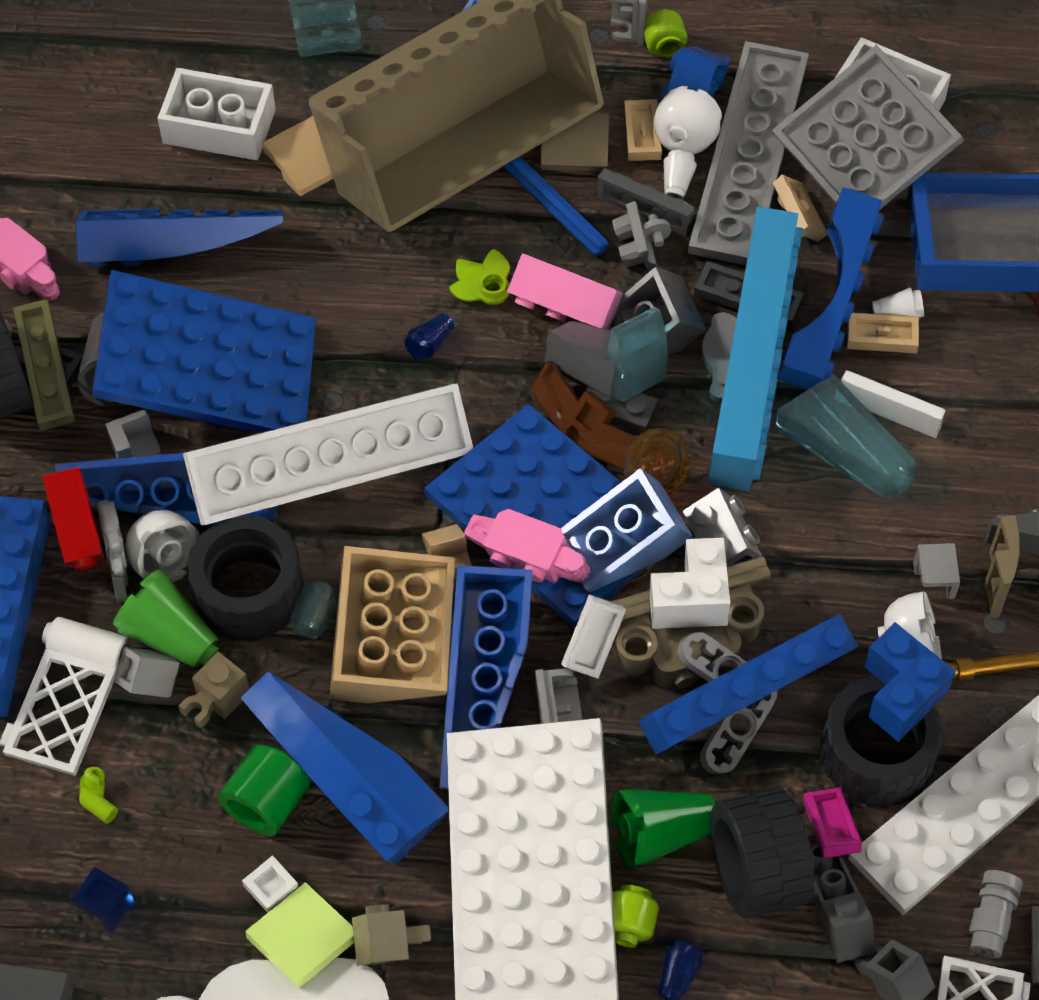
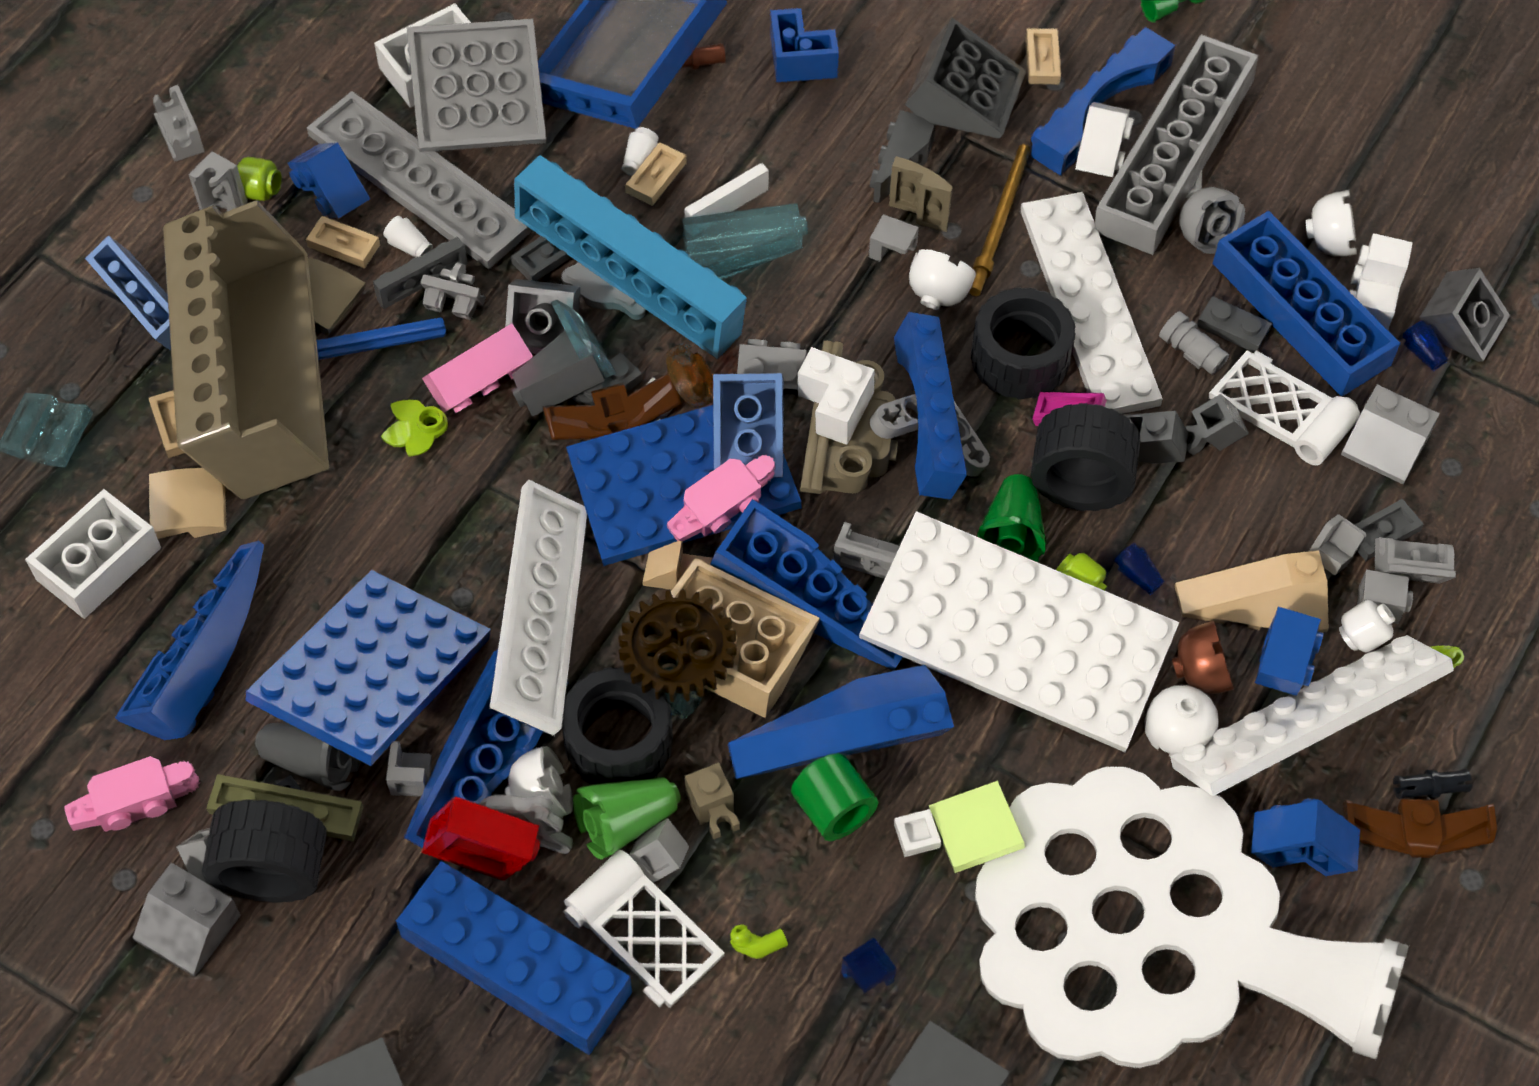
camera: 65 degrees left, 0 degrees up
(313, 599) = (663, 619): none -> dark brown gear
(383, 936) = (1015, 761): dark tan brick -> none
(427, 337) = (450, 491): clear blue cone -> none
(593, 636) = (830, 488): white tile -> none
(687, 120) = (367, 201): white cylinder -> none
(795, 199) = (489, 170): tan plate -> none
(849, 230) = (561, 140): blue arch -> none
(912, 680) = (1003, 283): blue brick -> none

